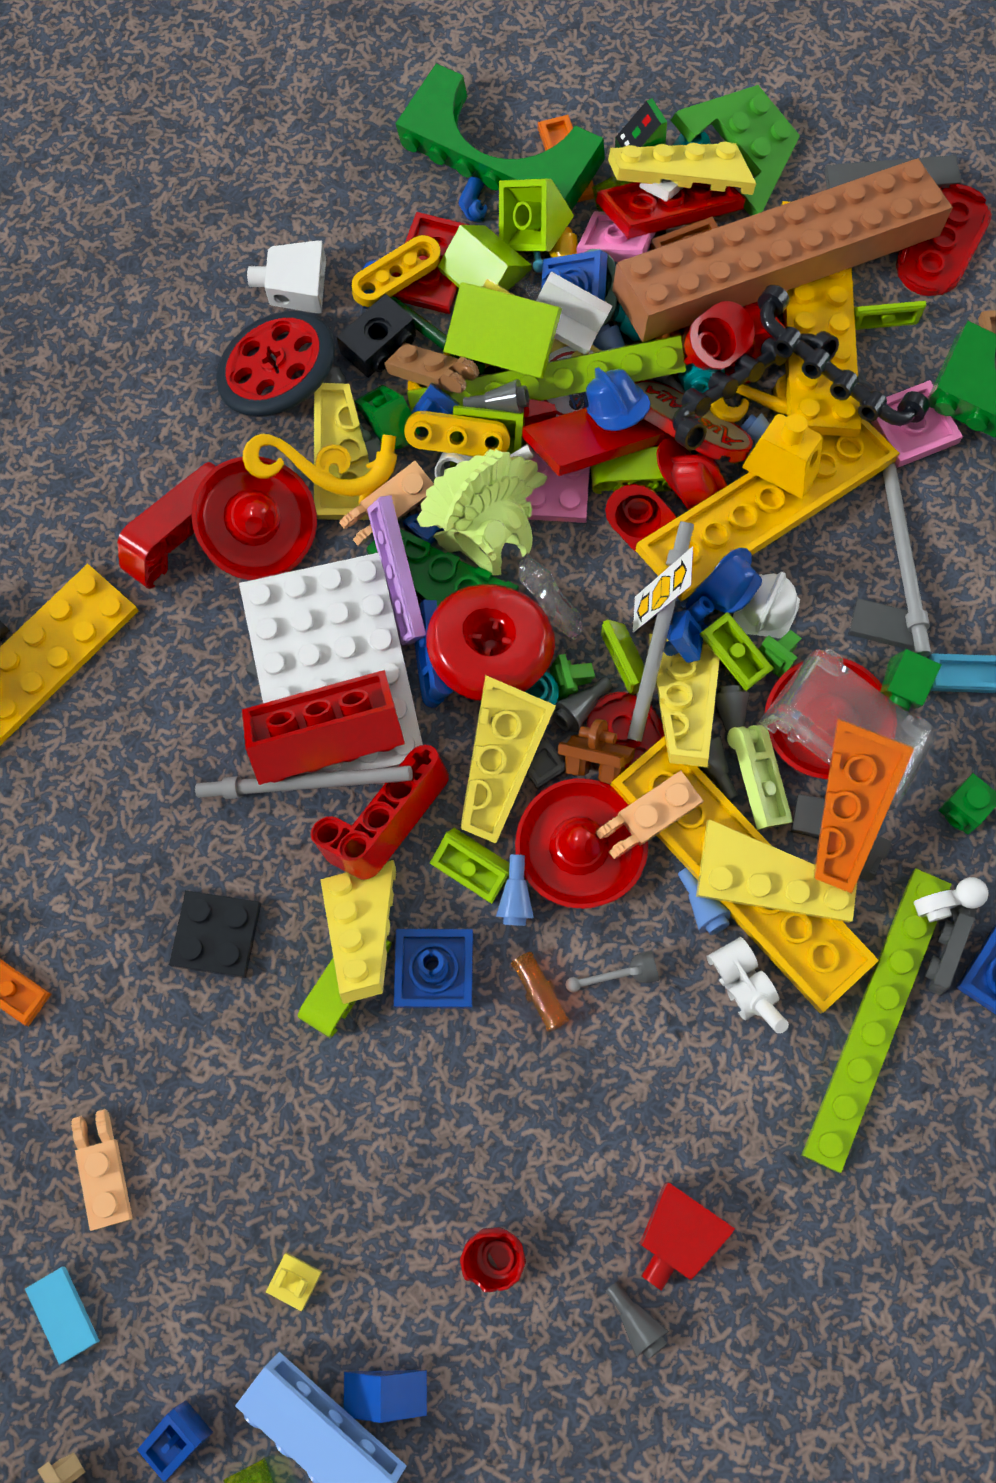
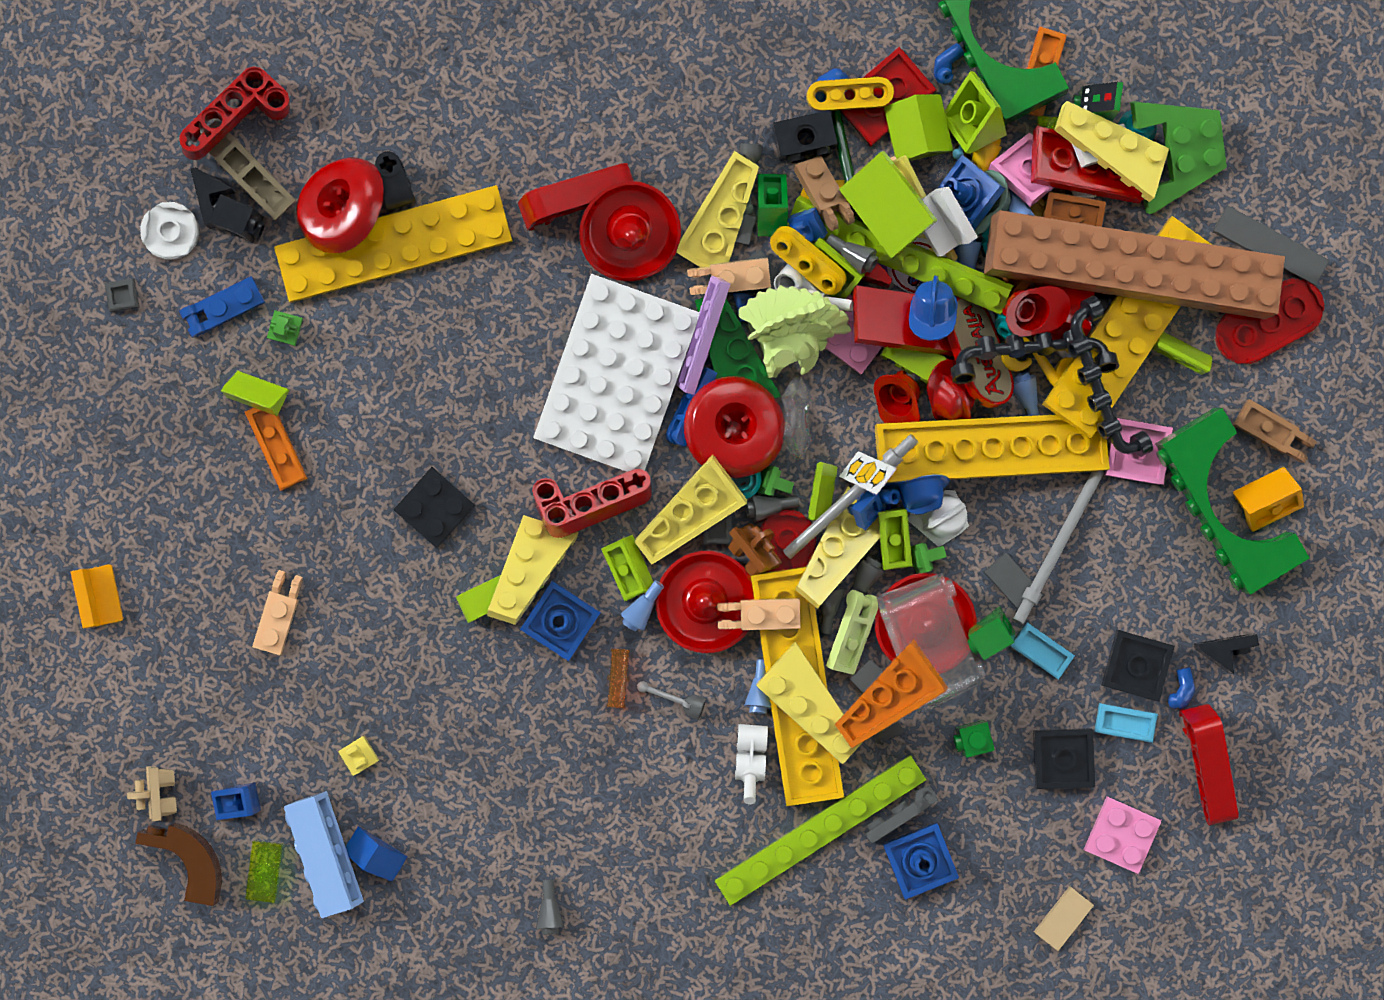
camera: 25 degrees right, 15 degrees up
(62, 1315) = (208, 685): medium azure tile -> none
(235, 786) = (504, 416): light grey bar -> none
(287, 392) = (725, 78): wedge -> none
(292, 276) = (774, 45): white torso -> none
(319, 473) = (694, 228): yellow plant -> none
(321, 727) = (584, 416): red slope -> none
(506, 1253) = (496, 820): red hair -> none
(680, 1236) = (607, 879): red torso -> none
(787, 454) = (1020, 427): yellow torso -> none
(969, 892) = (927, 795): white plate -> none

